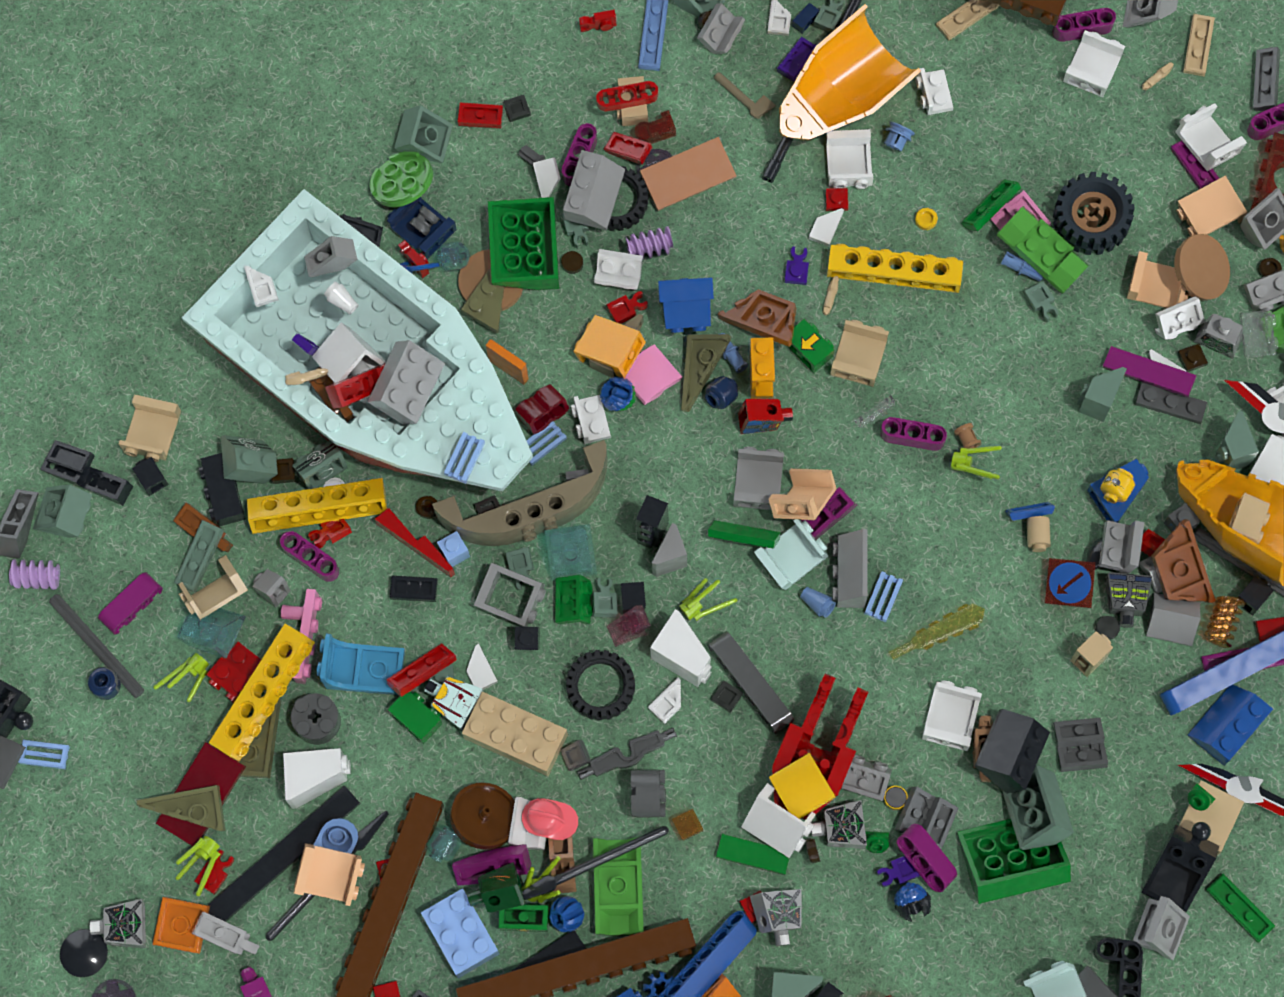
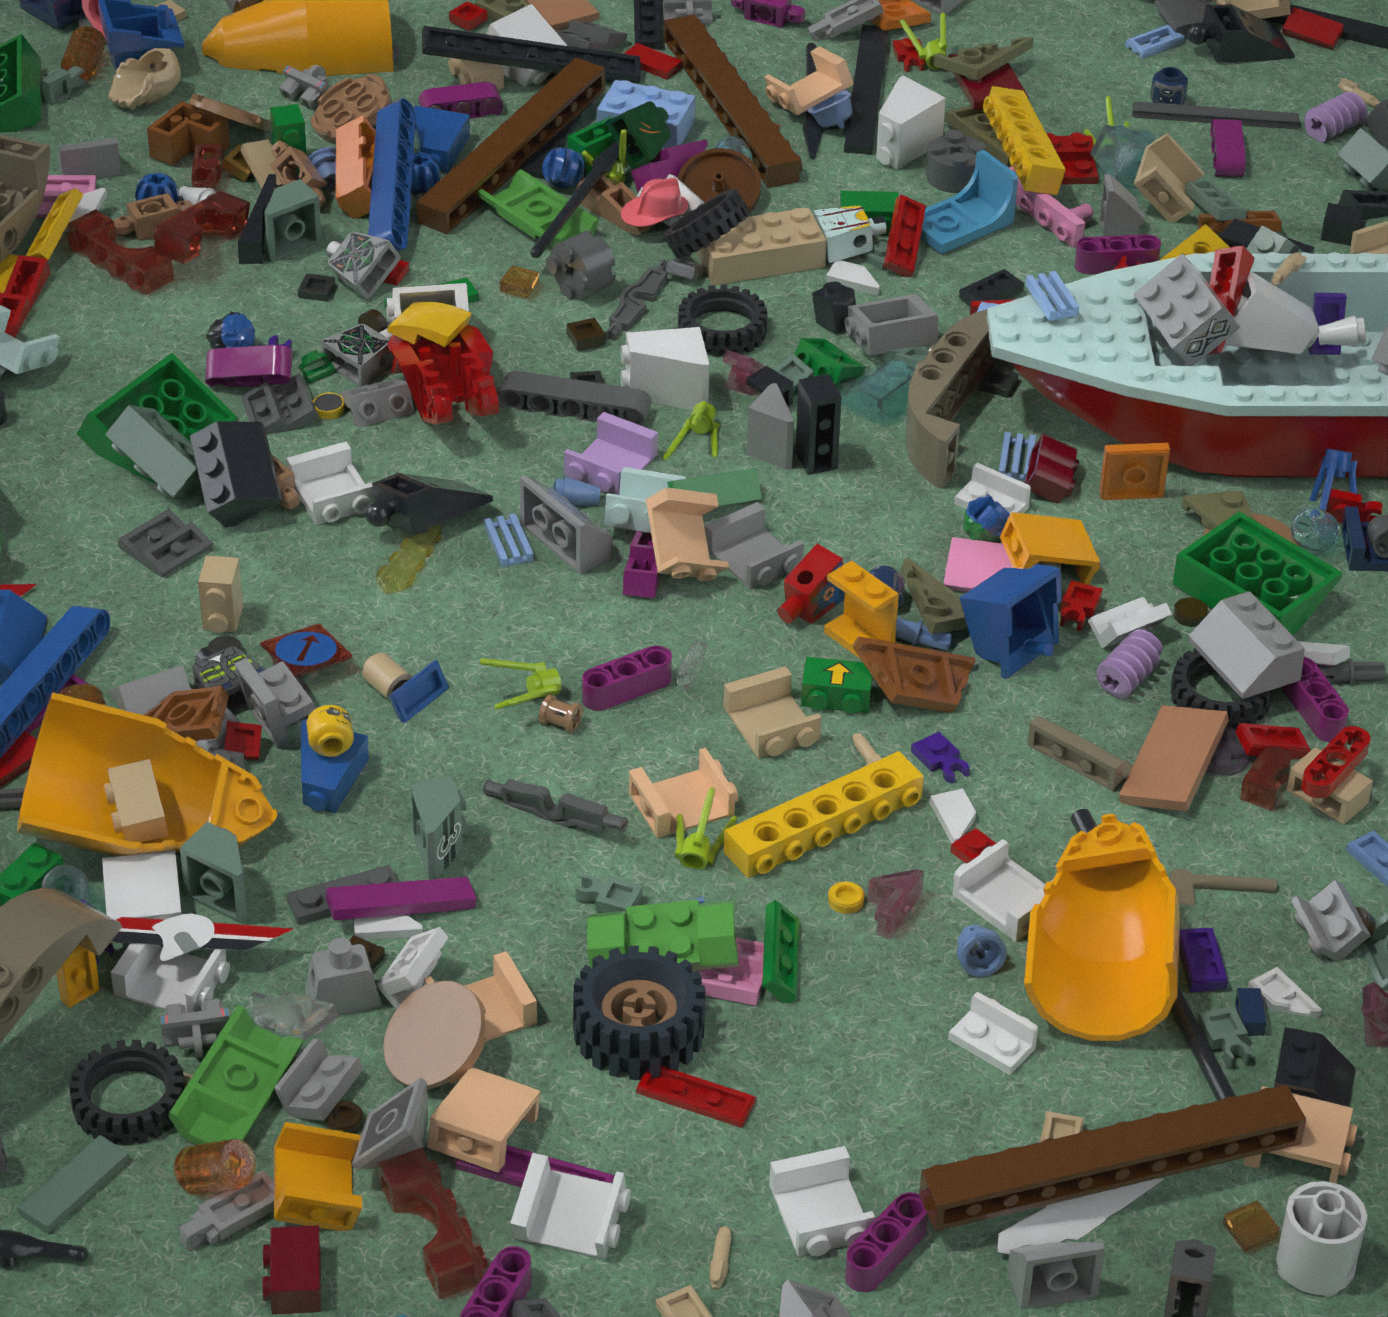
camera: 135 degrees right, 30 degrees down
(548, 787) = (706, 223): none -> black tyre
(690, 740) = (586, 334): none -> dark brown plate
(726, 215) = (1077, 753): none -> dark tan panel
(772, 617) = (617, 446): none -> lavender panel
(815, 925) = (316, 287): none -> pearl dark grey tile
(905, 193) = (895, 898): none -> clear pink slope
(906, 650) = (421, 501): none -> black slope
(951, 337) = (683, 795): none -> light nougat panel
(975, 297) = (696, 849): none -> lime plant
(1028, 382) = (569, 812): none -> dark grey piece
(1092, 156) = (697, 1095): none -> red tile

